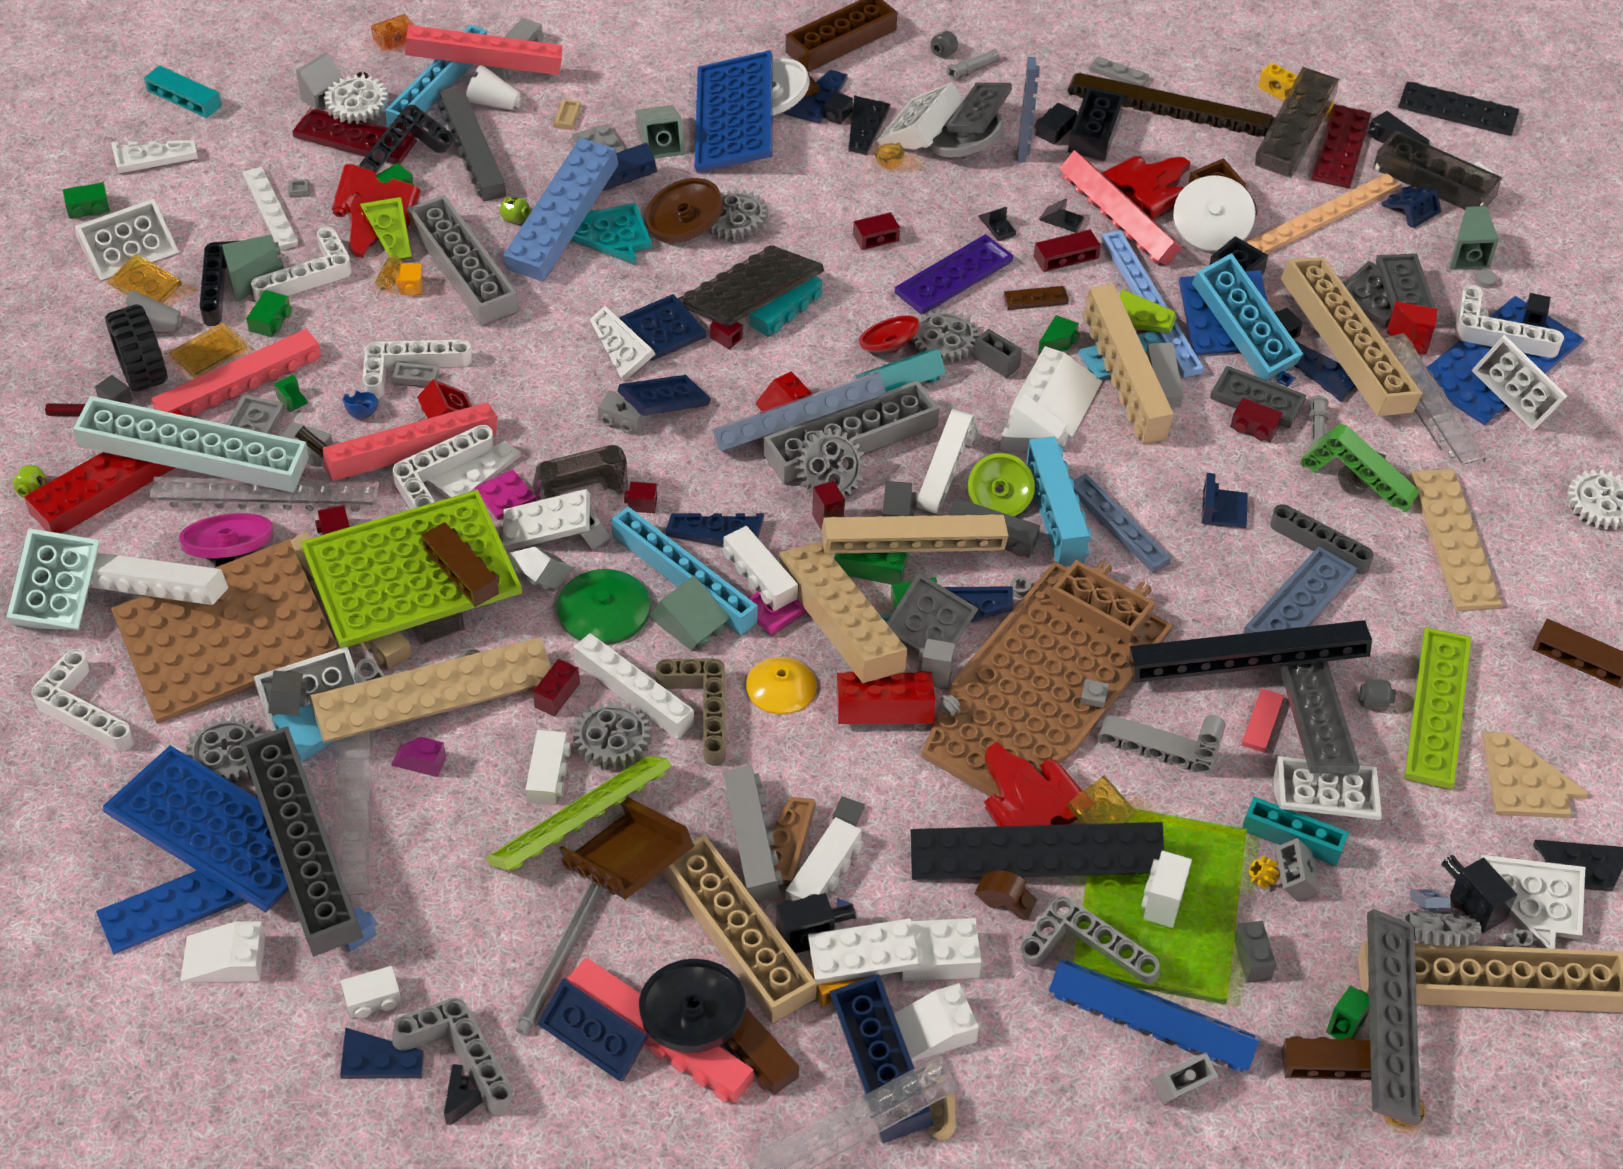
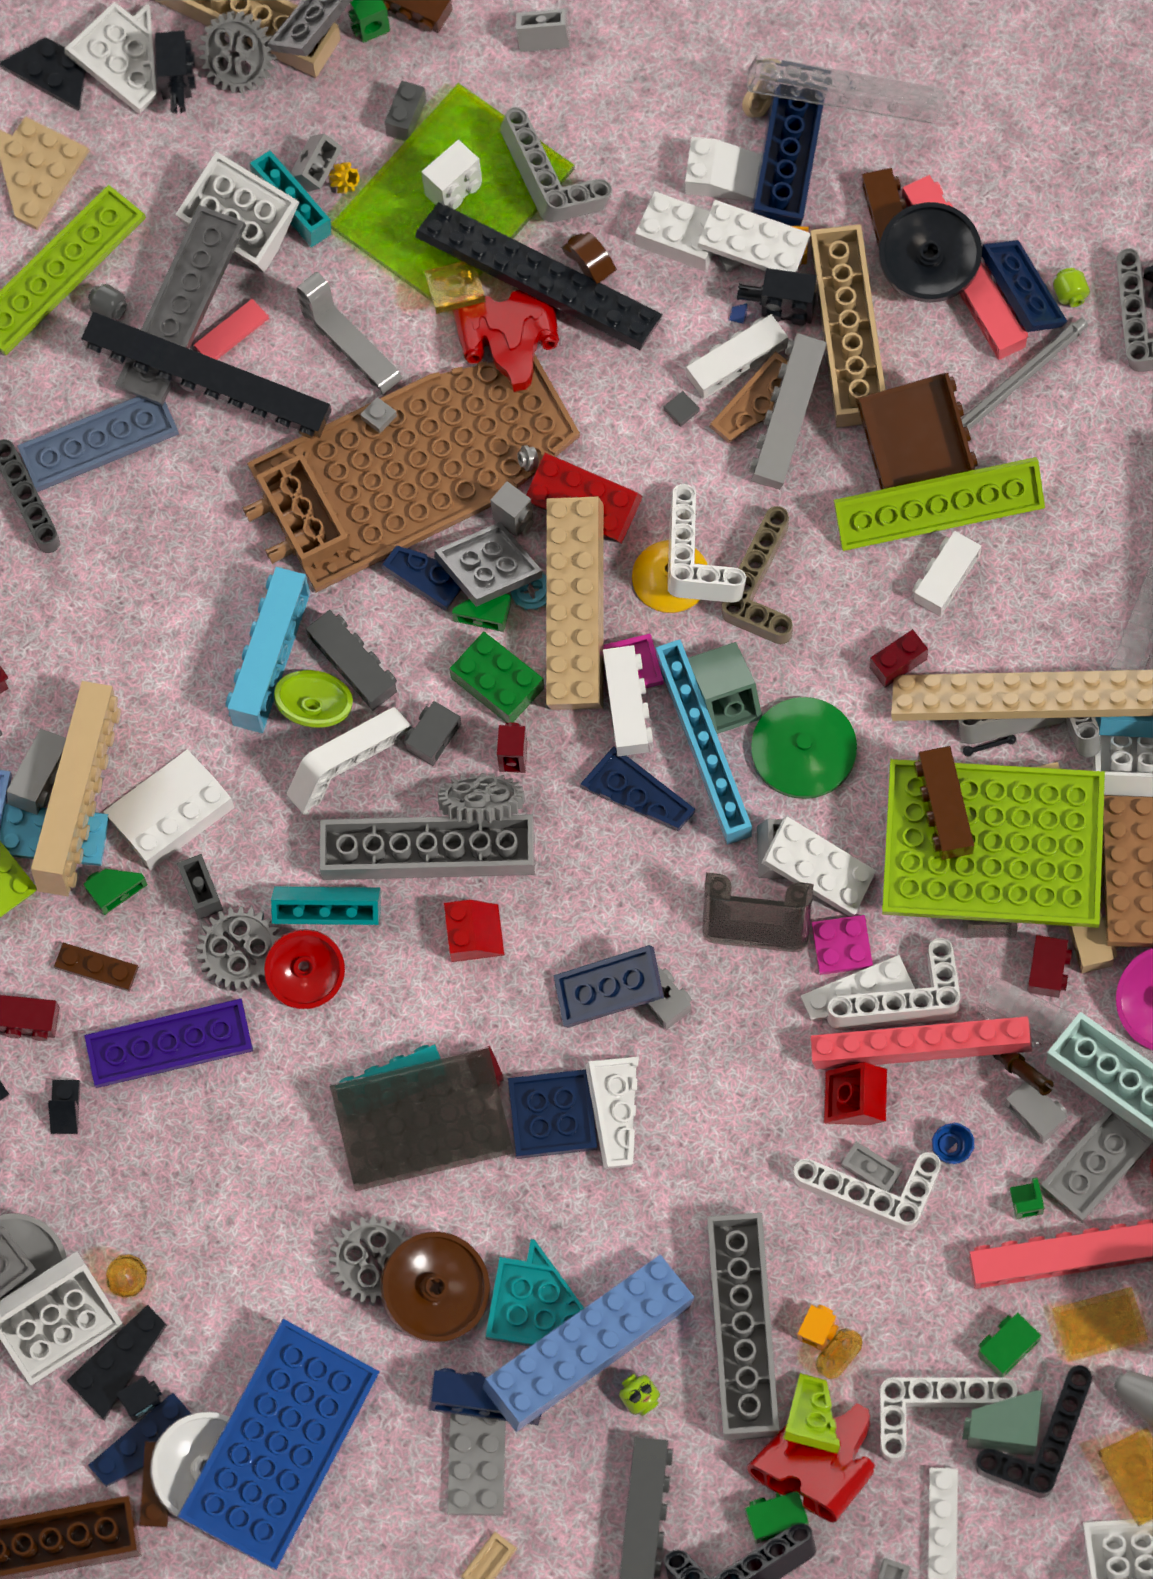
camera: 145 degrees left, 20 degrees up
(421, 756) = (1066, 640): magenta slope -> none
(540, 567) = (854, 806): light grey slope -> none
(547, 1055) = (1071, 287): none -> lime head
(627, 733) = (851, 567): light grey gear -> none
(634, 686) = (821, 627): white brick -> none
(641, 497) = (696, 863): dark red brick -> none
(661, 130) = (389, 1461): sand green slope -> none
(773, 681) = (684, 576): none -> white beam
(799, 411) = (476, 882): sand blue brick -> none
(876, 231) = (219, 1153): dark red brick -> none
(914, 534) = (451, 652): tan brick -> none
(1020, 593) = (373, 583): light grey bush -> none
(1028, 422) = (231, 763): white slope -> none
(1120, 524) = (215, 612): sand blue plate -> none
(1155, 1015) = (531, 93): blue brick -> none
(1223, 506) = (93, 583): dark blue bracket -> none
(1430, 899) = (219, 86): sand blue plate -> none
(1520, 938) = (167, 15): light grey gear -> none

